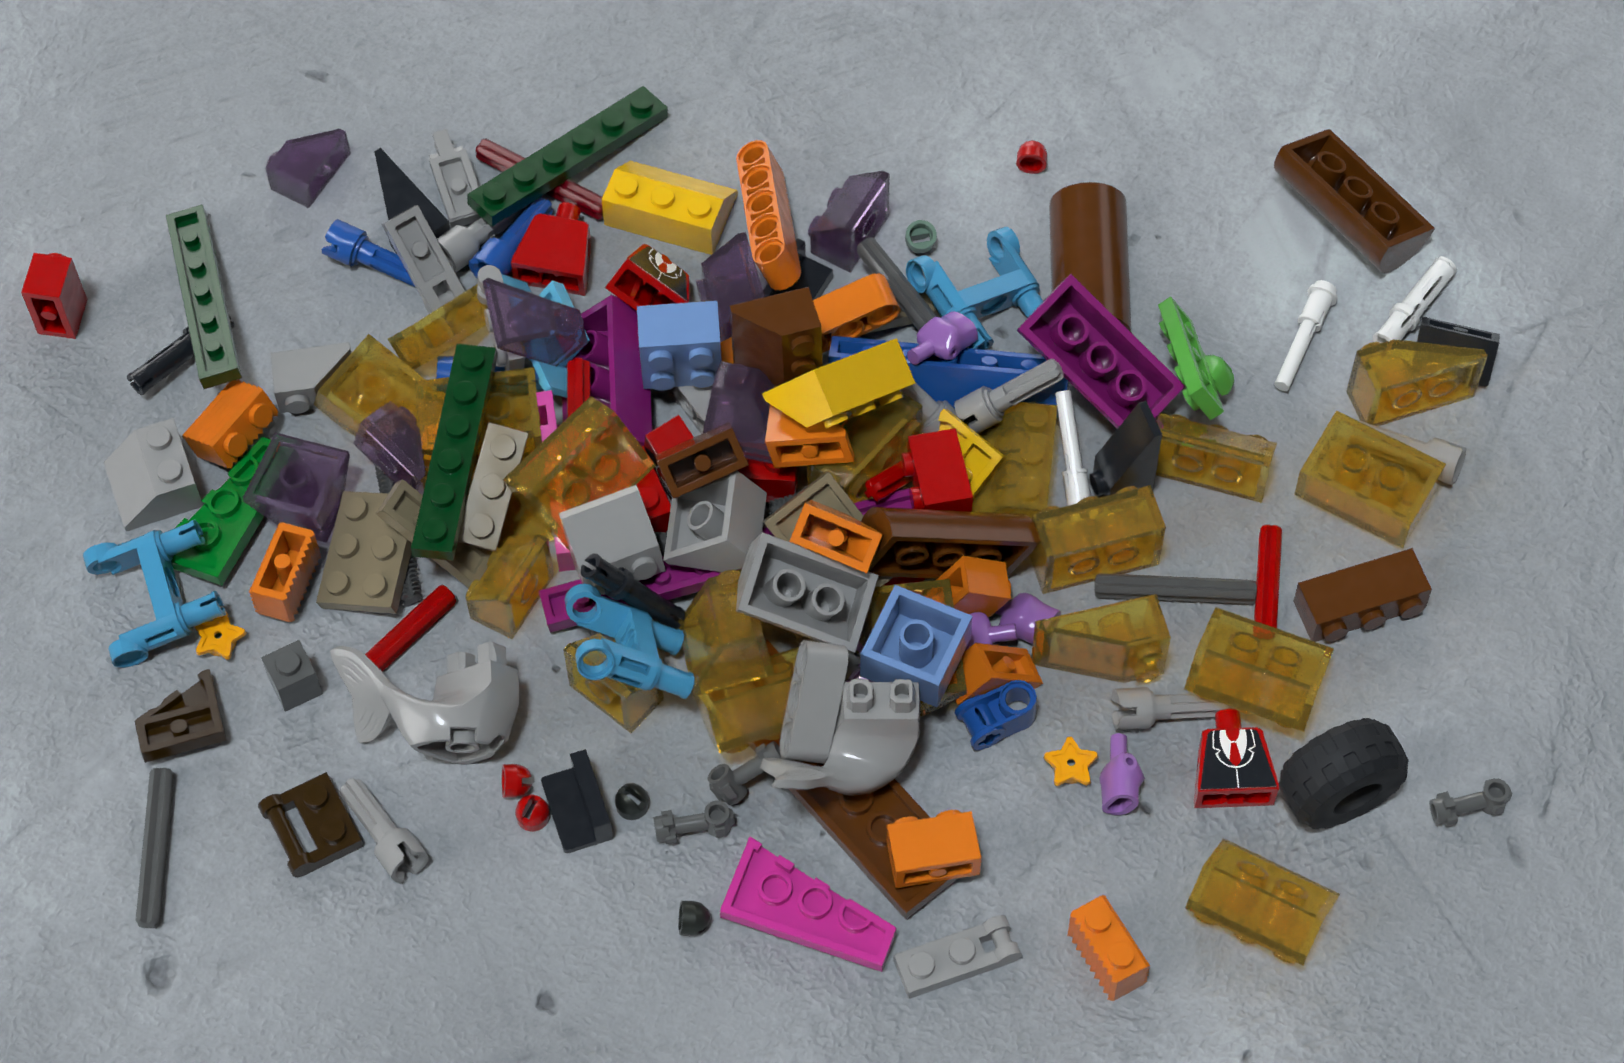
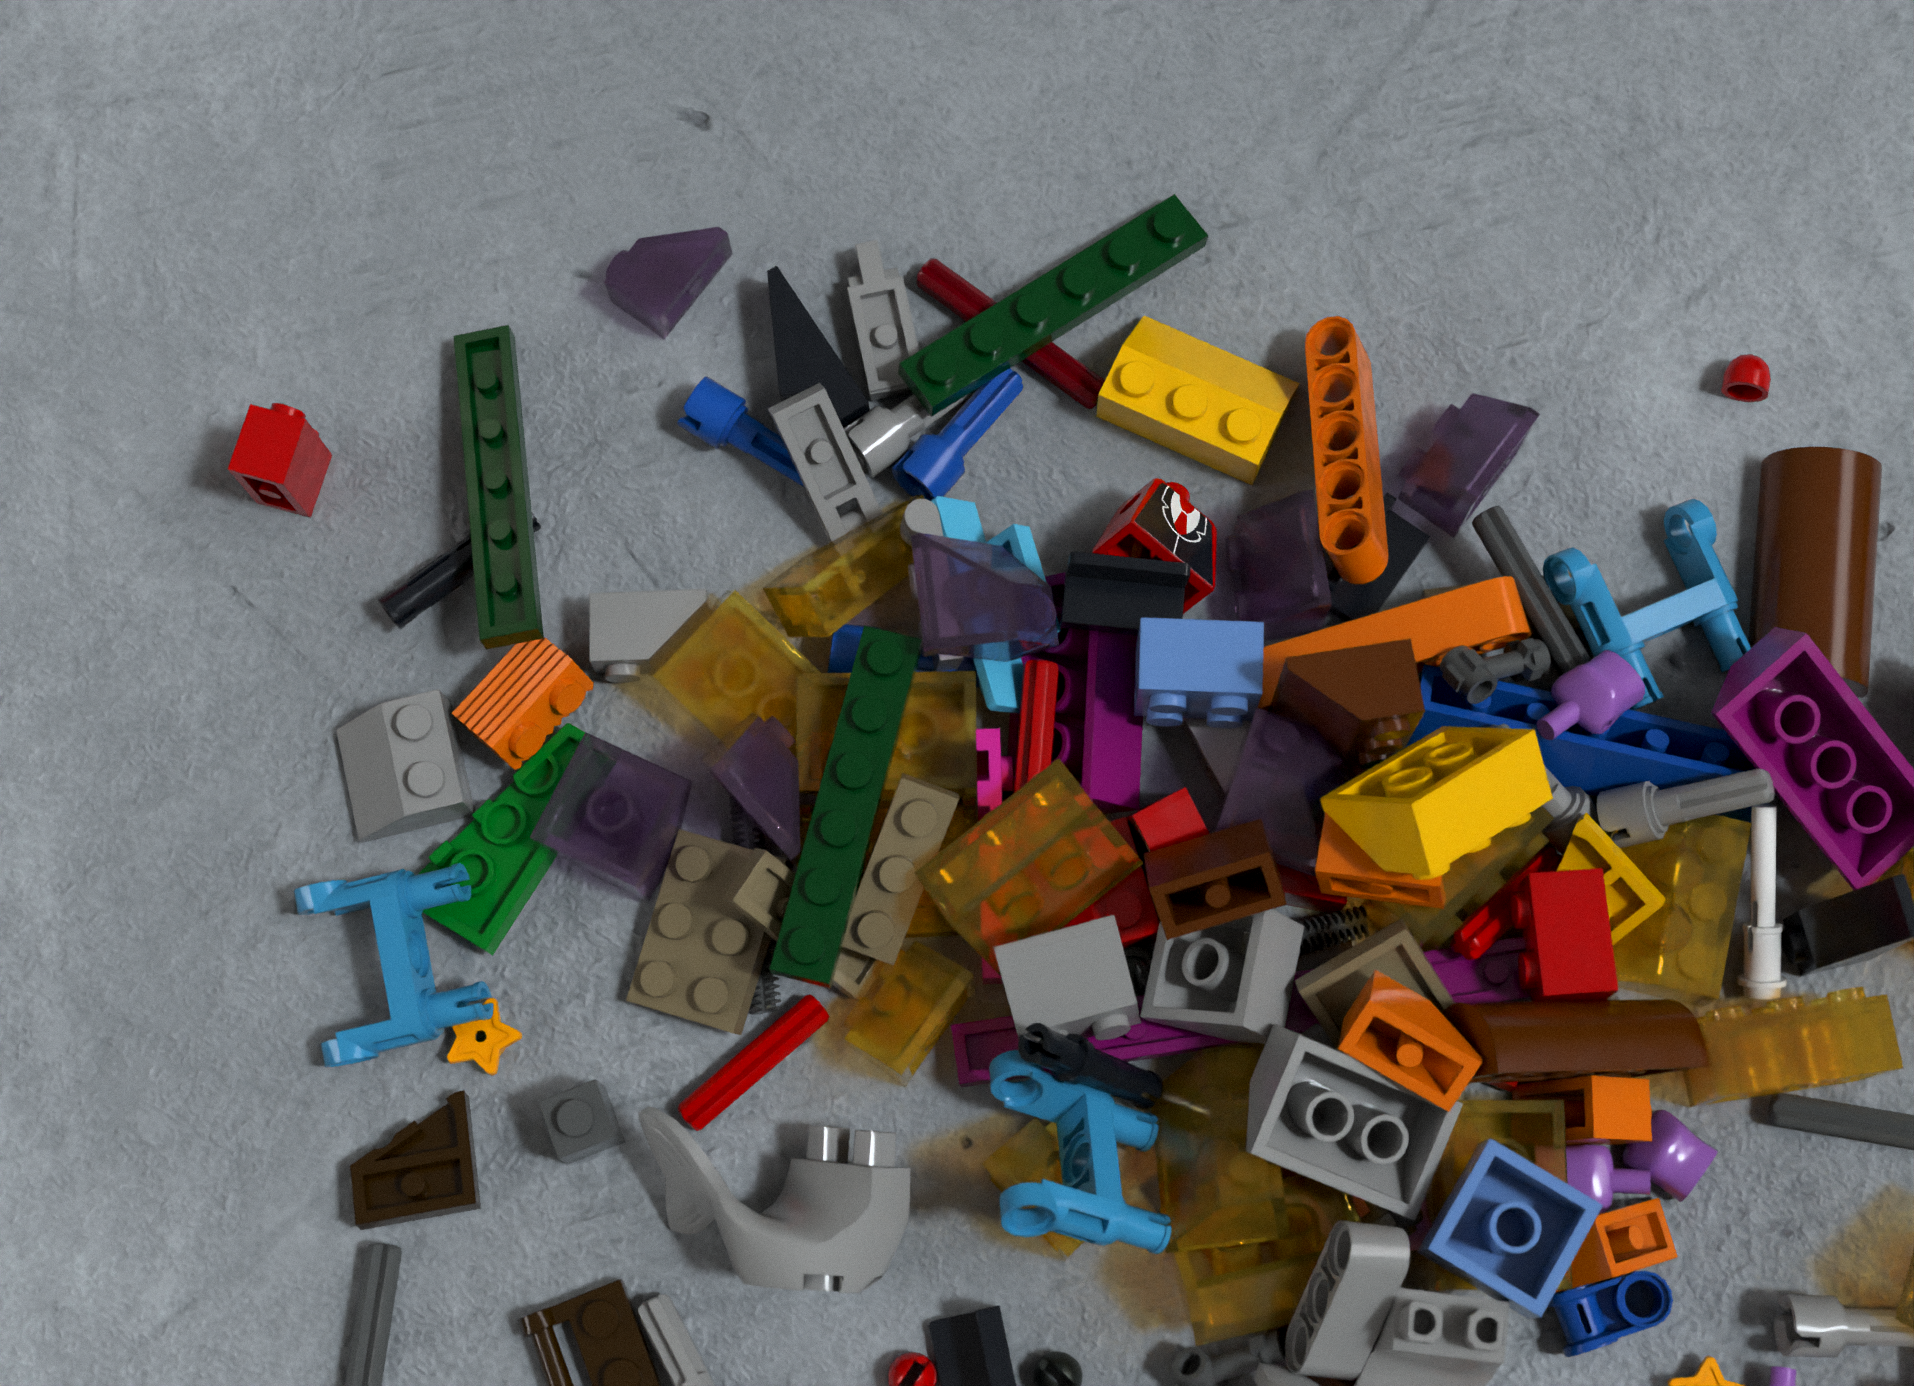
camera: 10 degrees right, 15 degrees up
(285, 572) = (584, 955): orange brick -> none
(512, 780) = (891, 1326): red hinge -> none
(555, 251) = (1021, 461): red torso -> none
(615, 300) = (1117, 591): none -> black panel
(866, 334) = (1477, 677): none -> dark grey bar
(919, 230) = (1564, 485): sand green hinge -> none
(1106, 642) = (1818, 1226): clear yellow slope -> none

